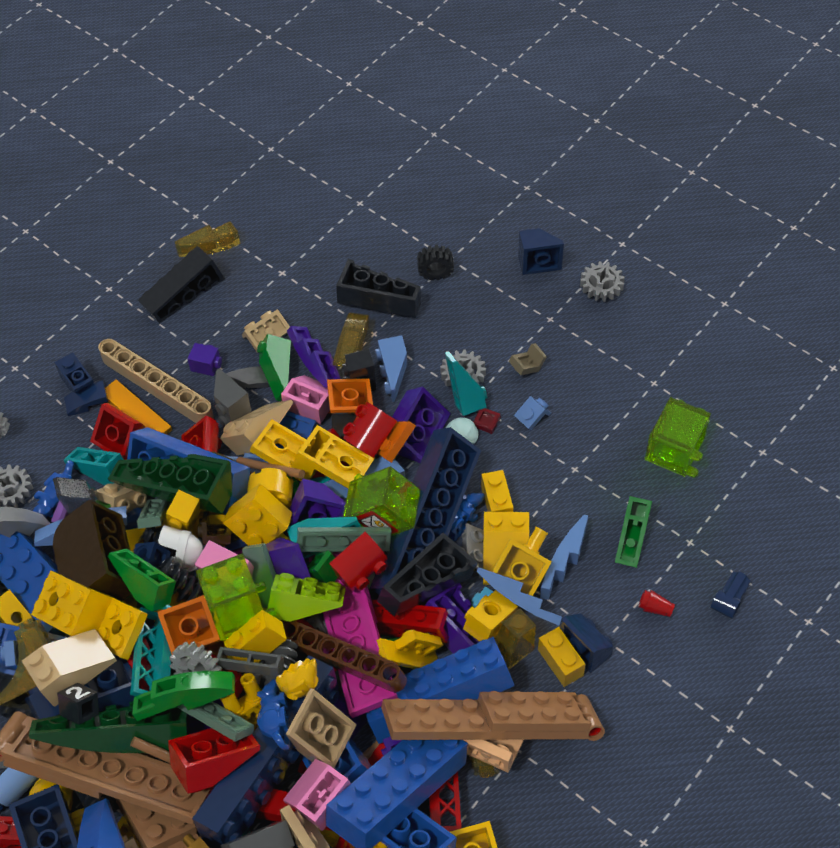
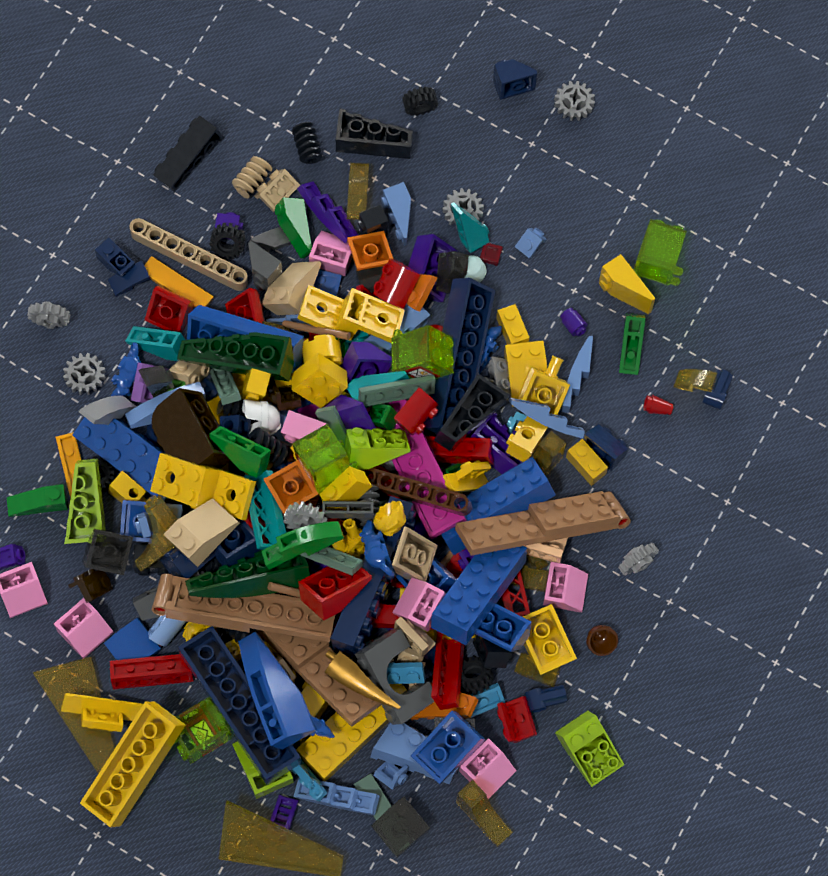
camera: 15 degrees left, 15 degrees up
(78, 703) = (219, 562): black brick -> none
(191, 378) = (227, 232): none -> black tyre
(209, 239) = (201, 100): clear yellow slope -> none
(240, 313) = (250, 175): none -> tan piece
(308, 290) = (306, 144): none -> black piece
(436, 418) = (450, 266): none -> clear smoke slope
(473, 788) = (533, 578): none -> clear yellow slope
(512, 804) = (565, 587): none -> bright pink slope
(529, 361) = (519, 191): dark tan bracket -> none
(568, 500) = (573, 322): none -> dark purple brick
(608, 780) = (638, 559): none -> light grey gear
(634, 466) = (625, 285): none -> yellow slope
(705, 578) = (693, 378): none -> clear yellow slope

